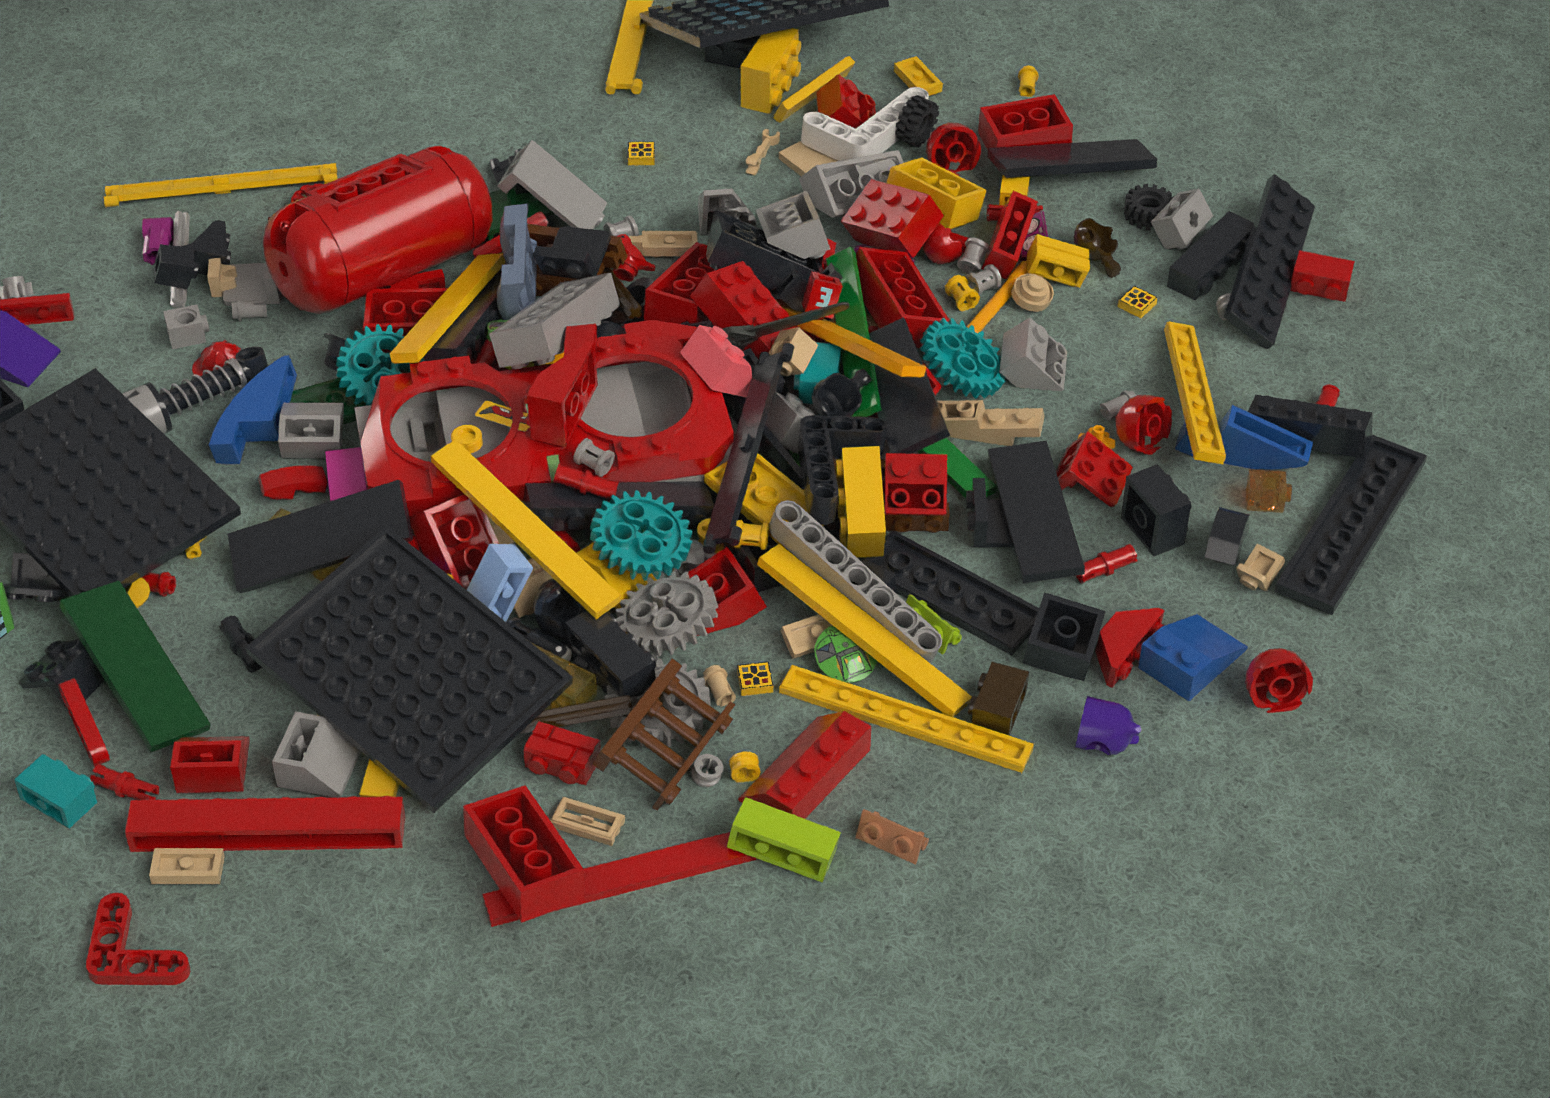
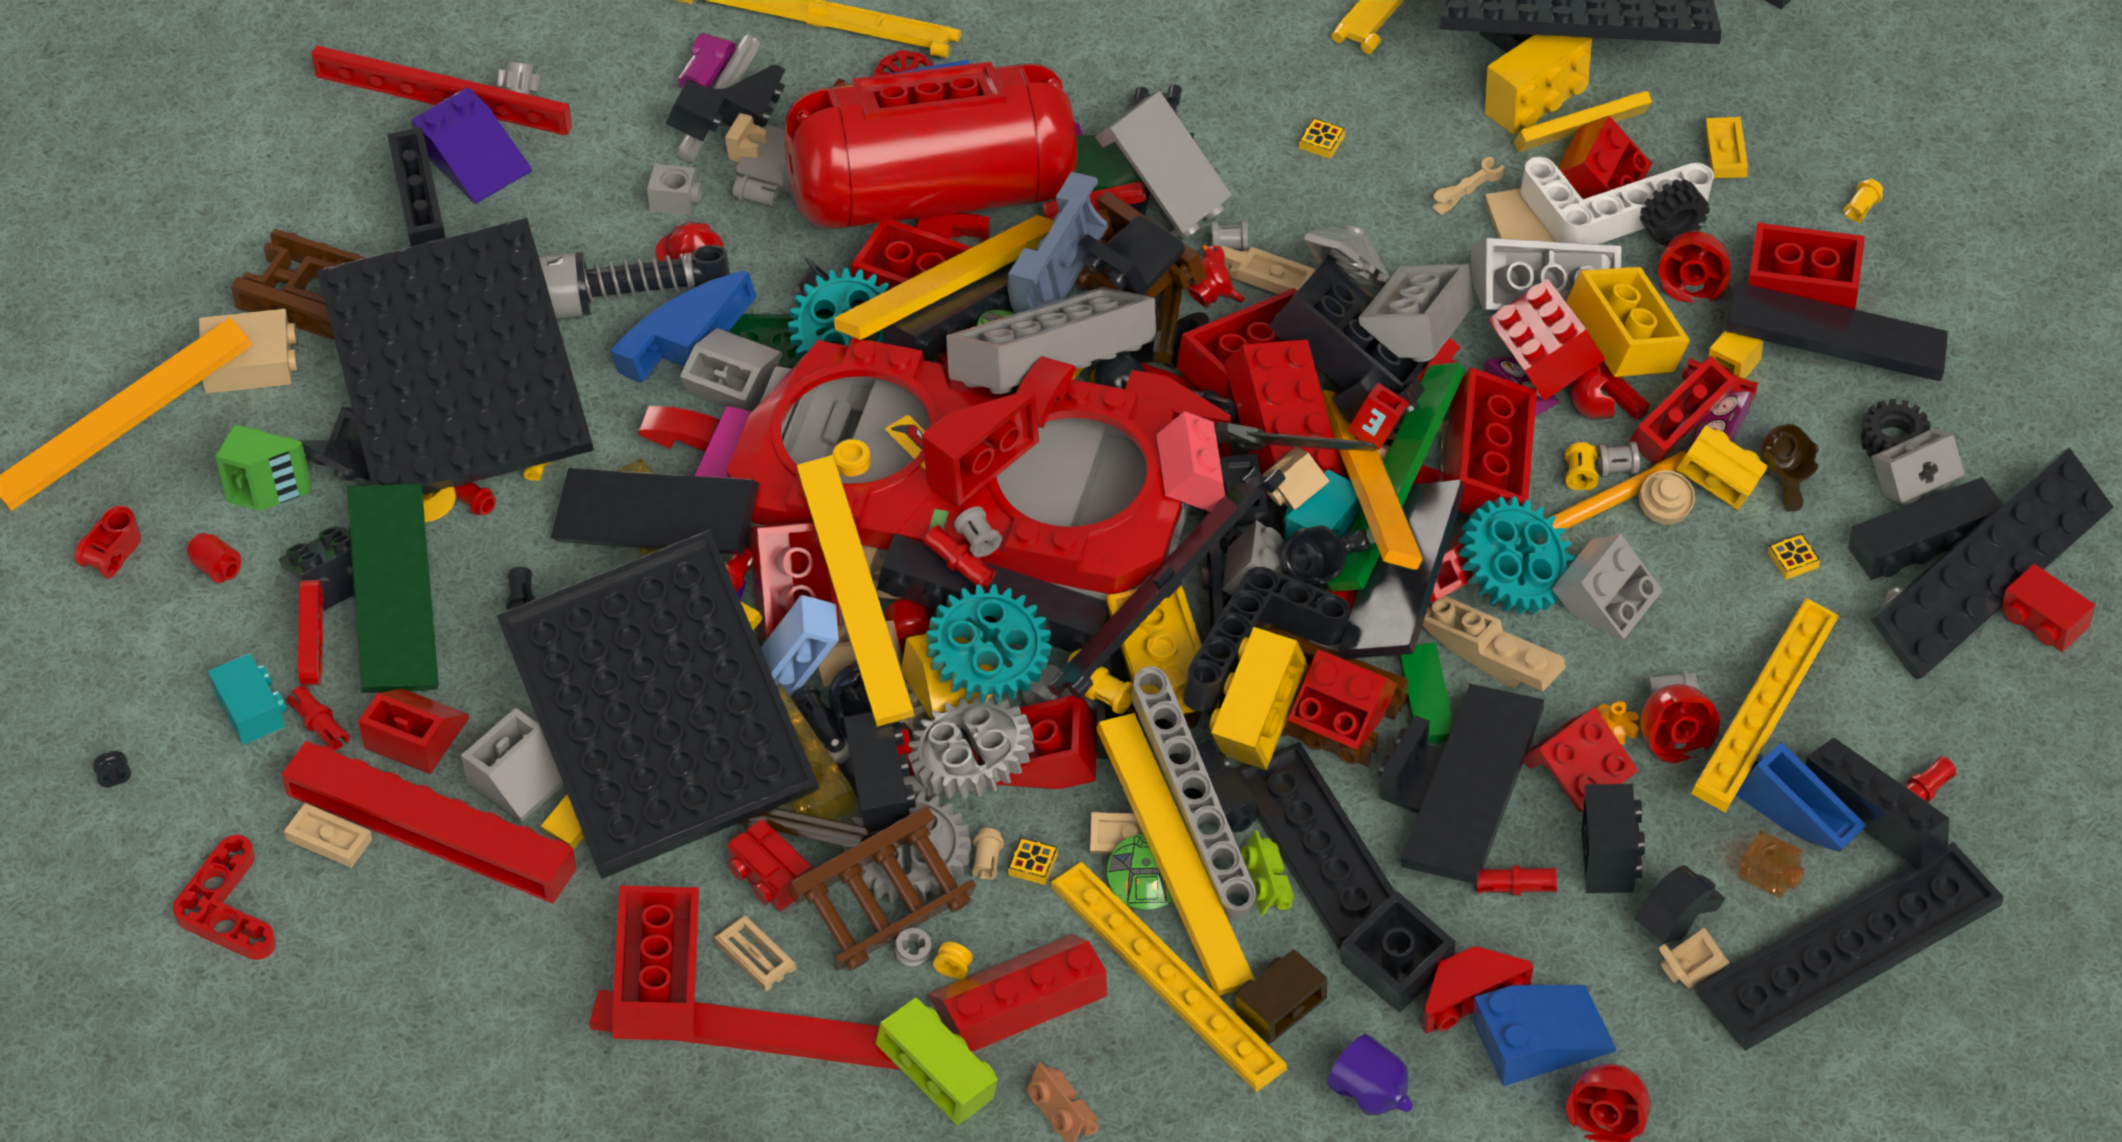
camera: 30 degrees right, 5 degrees up
(973, 255) = (1623, 422): light grey bush -> none

